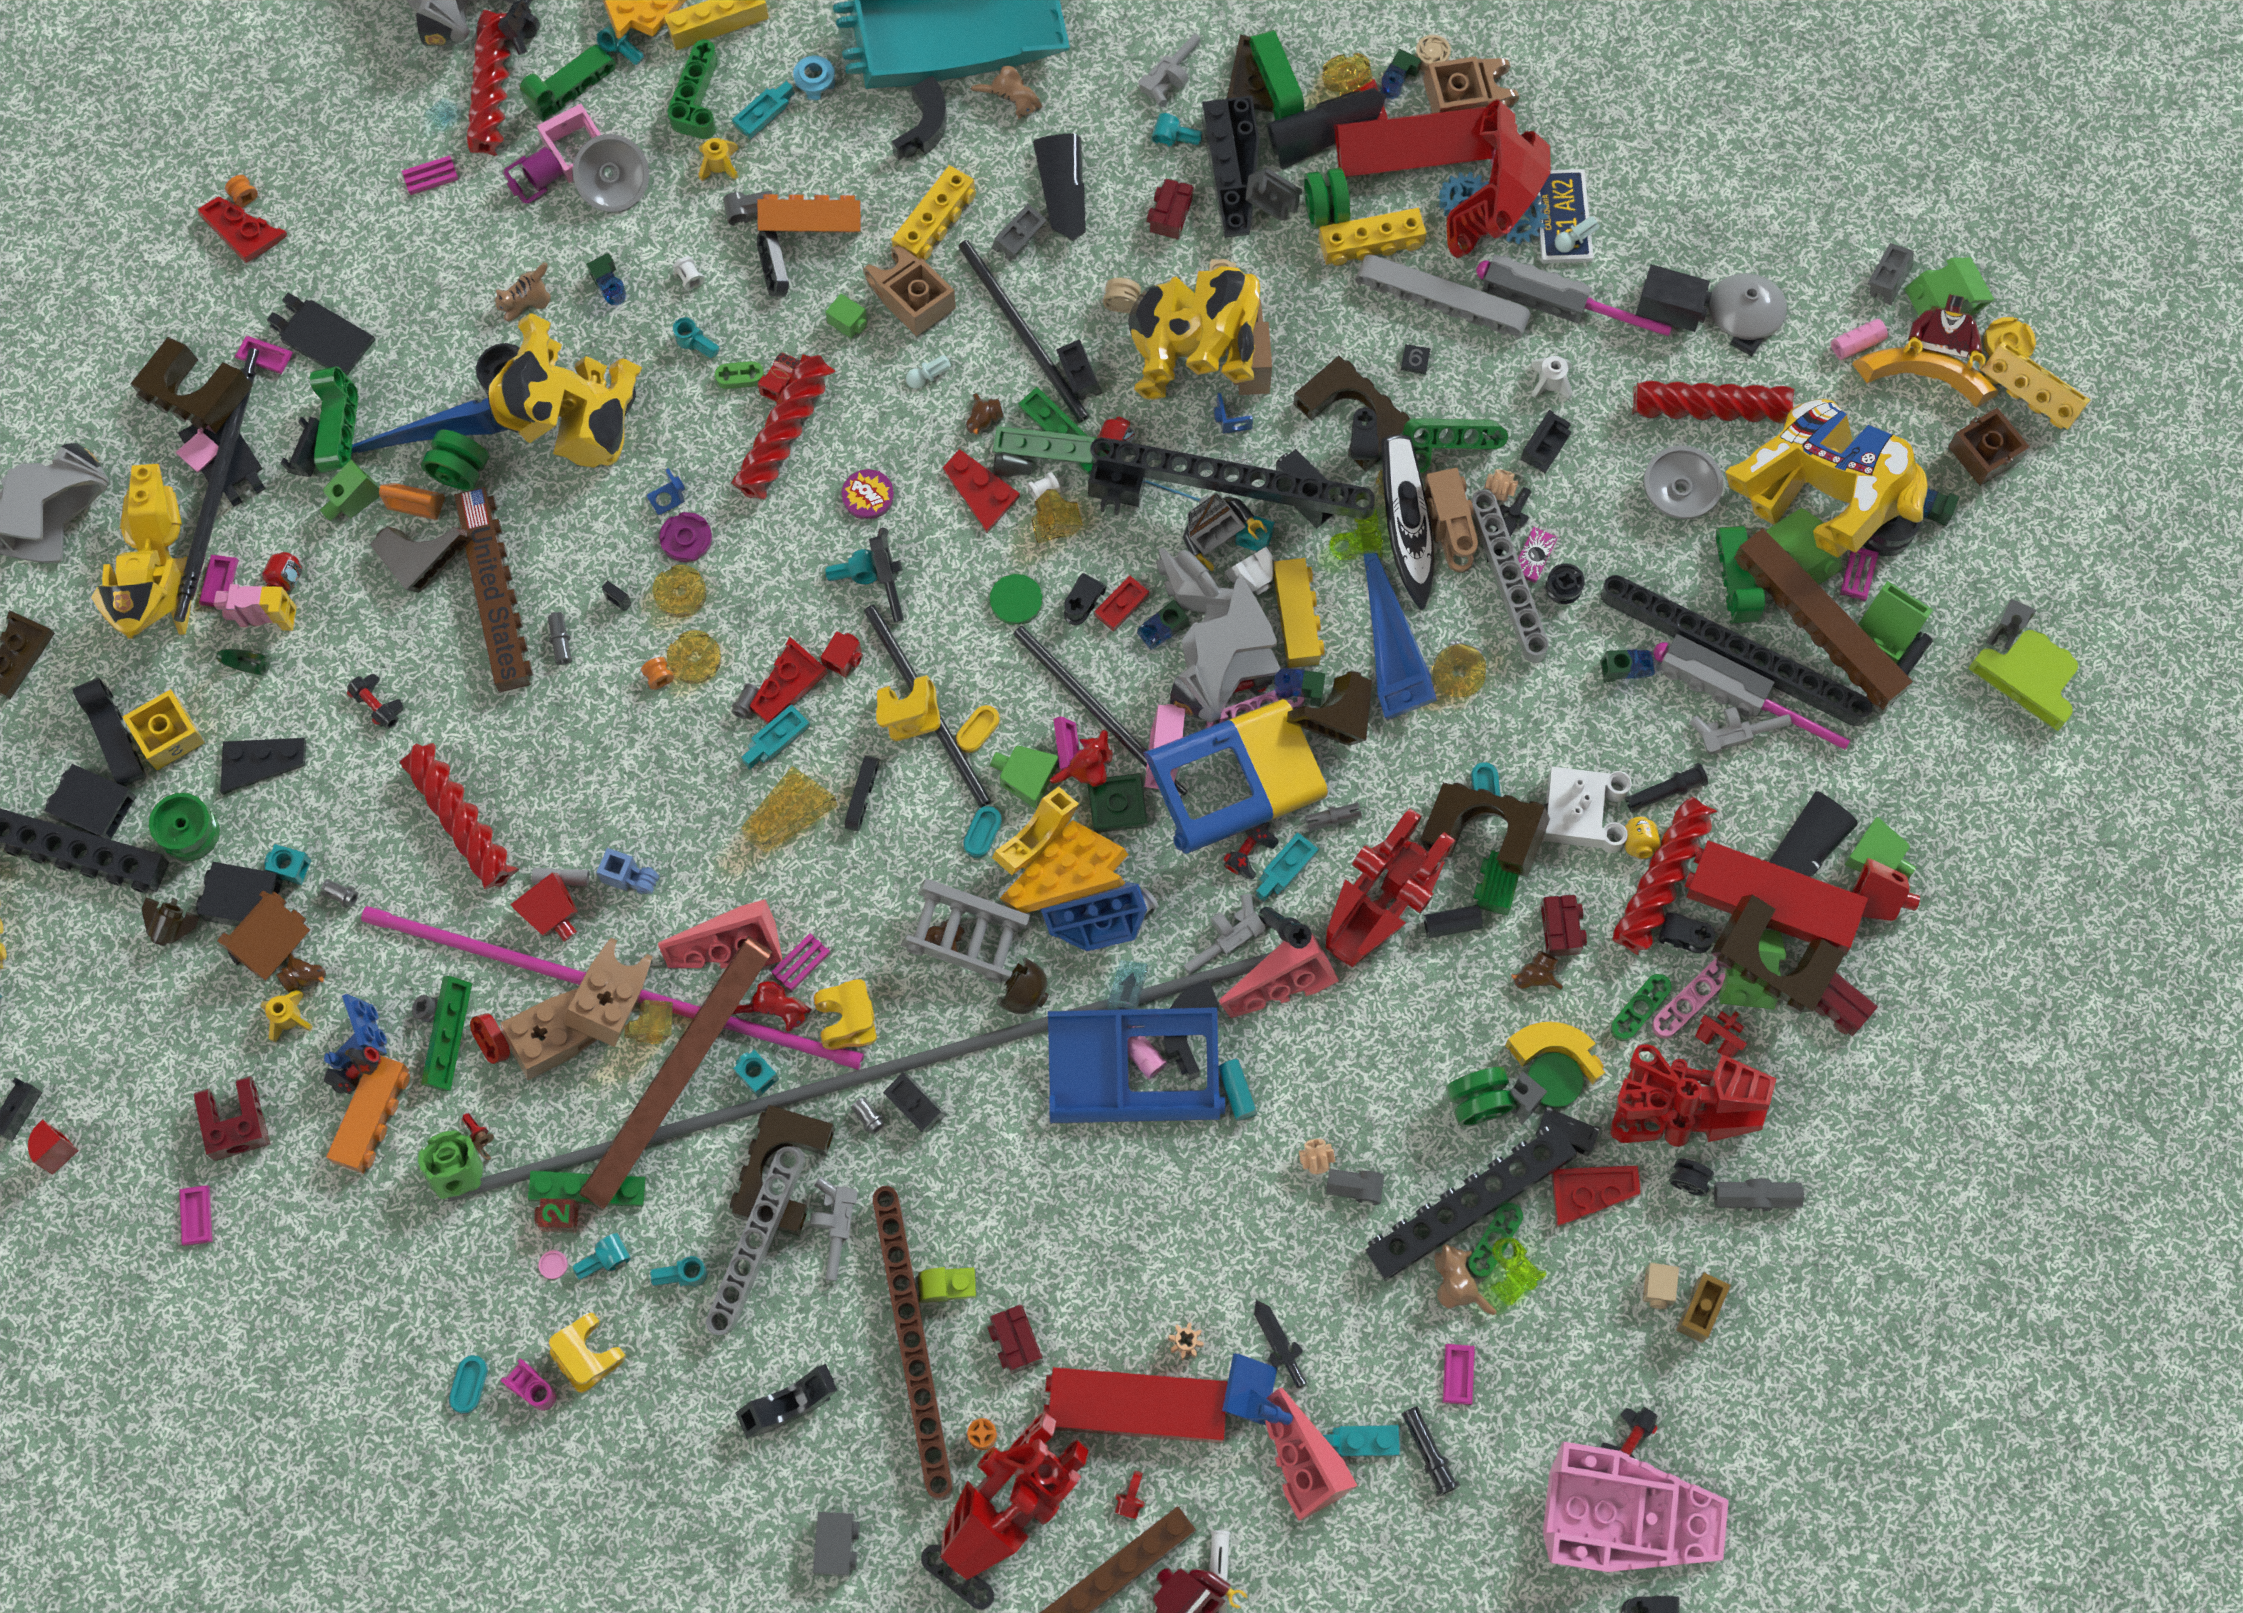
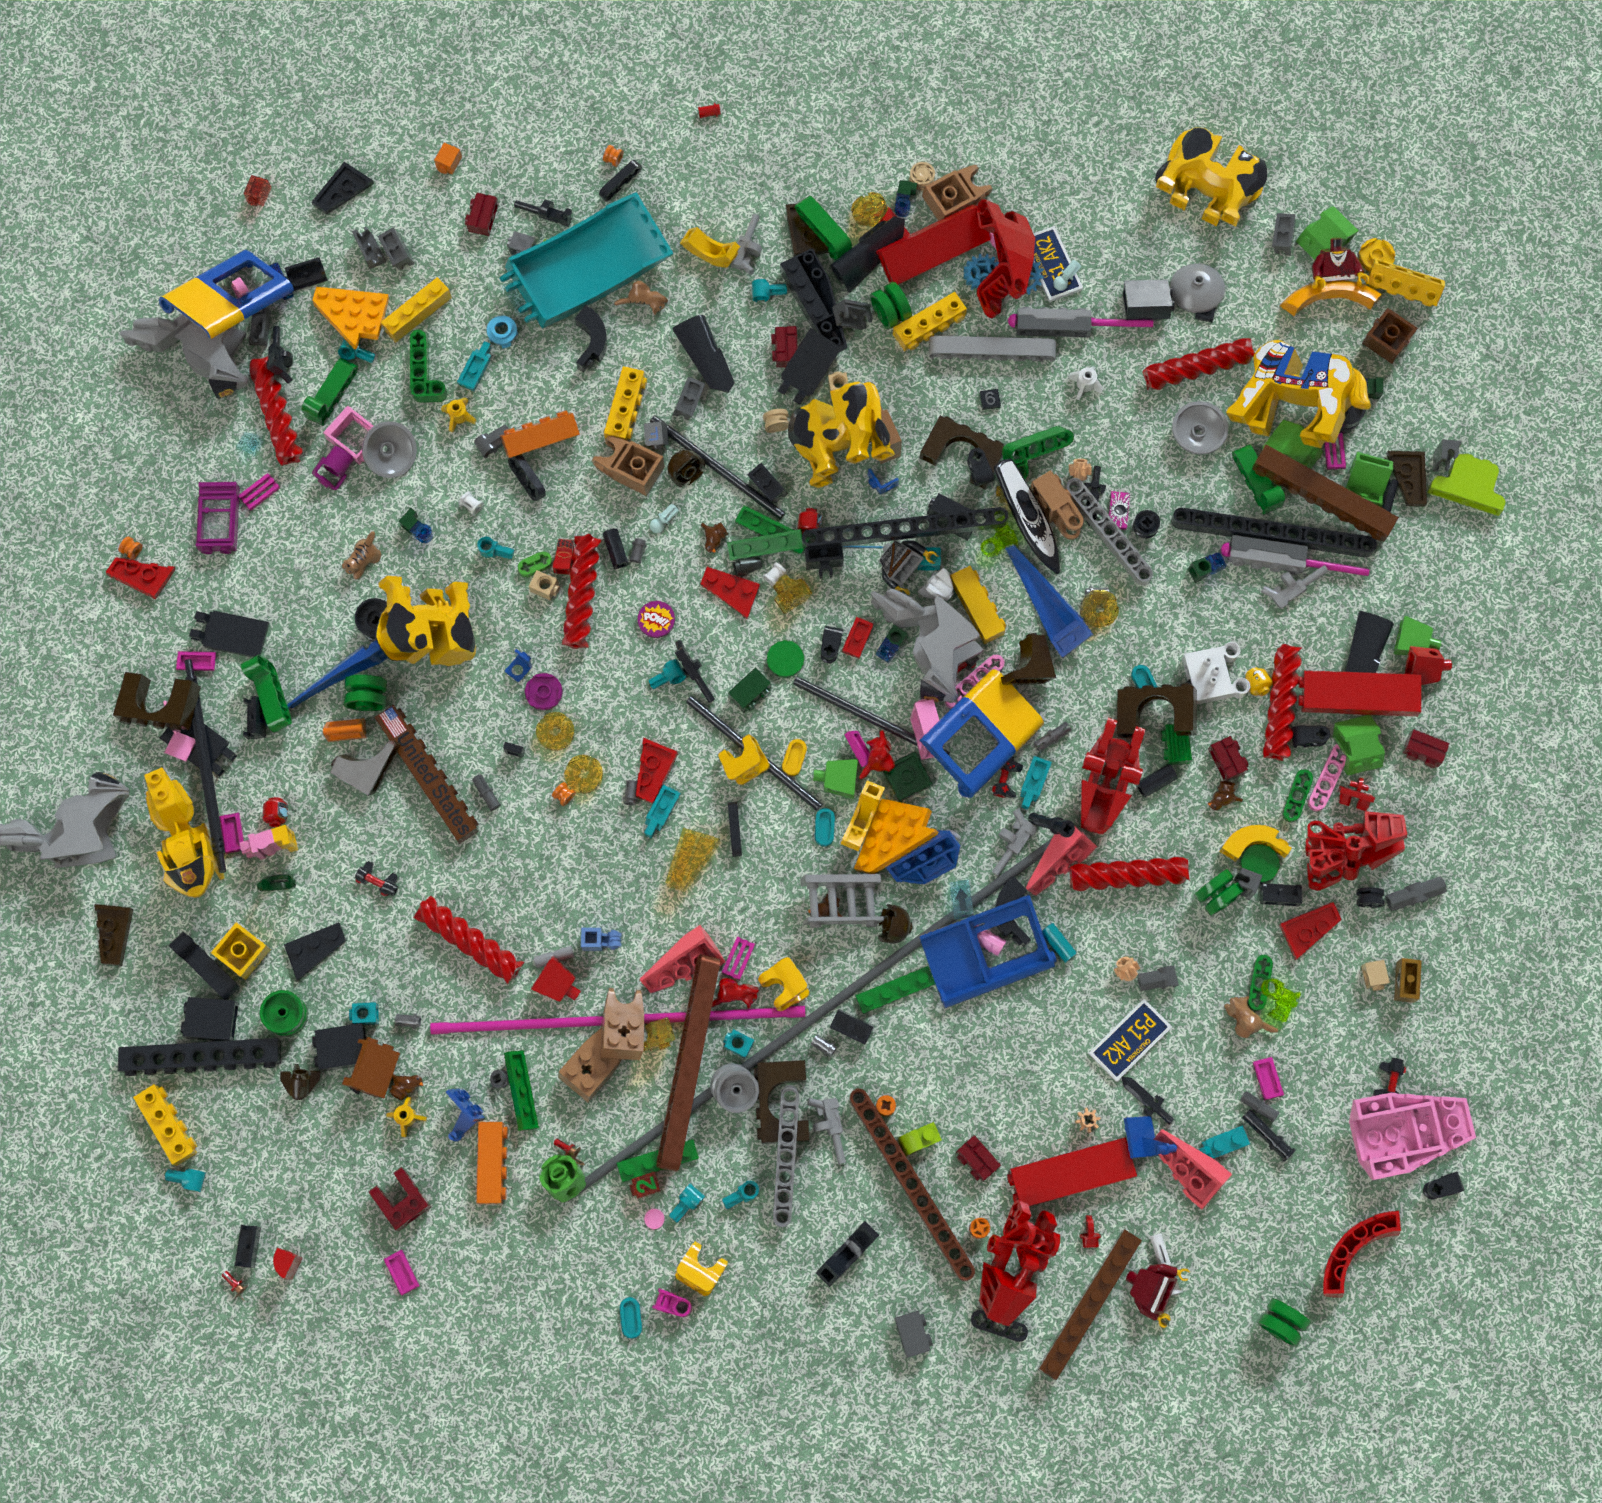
camera: 20 degrees left, 5 degrees up
(346, 1080) = (467, 1145): black piece -> none
(349, 492) = (305, 734): bright green torso -> none
(364, 188) = (217, 517): none -> magenta door
(489, 1038) = (551, 1083): red beam -> none
(725, 1143) = (734, 1088): none -> light grey wheel
(736, 395) = (541, 578): none -> tan brick
(842, 653) = (684, 737): red brick -> none
(846, 316) = (593, 498): bright green brick -> none
(850, 388) = (615, 548): none -> black axle
(878, 400) = (638, 549): none -> flat silver pin
(920, 1230) = (887, 1108): none -> orange wheel
(952, 623) = (750, 690): none -> dark green brick
(958, 263) = (656, 435): none -> dark grey brick
(982, 312) = (686, 464): none -> dark brown cylinder
(993, 1076) = (895, 990): none -> green plate
(1118, 58) = (709, 249): none -> yellow arch
(1190, 238) = (808, 365): none -> black tile
(1286, 1254) = (1130, 1040): none -> tile
(1300, 683) = (999, 653): leg -> none
(1359, 1028) = (1136, 873): none -> red piece
(1432, 1407) = (1259, 1106): none -> dark grey axle
(1546, 442) = (1099, 429): black hinge -> none
(1560, 1153) = (1283, 912): black brick -> none
(1678, 784) = (1268, 636): black pin -> none
(1740, 950) = (1351, 735): dark brown arch -> none
(1801, 149) = (1192, 166): none -> yellow animal
(1859, 339) = (1279, 287): bright pink axle -> none
(1953, 637) = (1411, 475): none -> dark brown wing

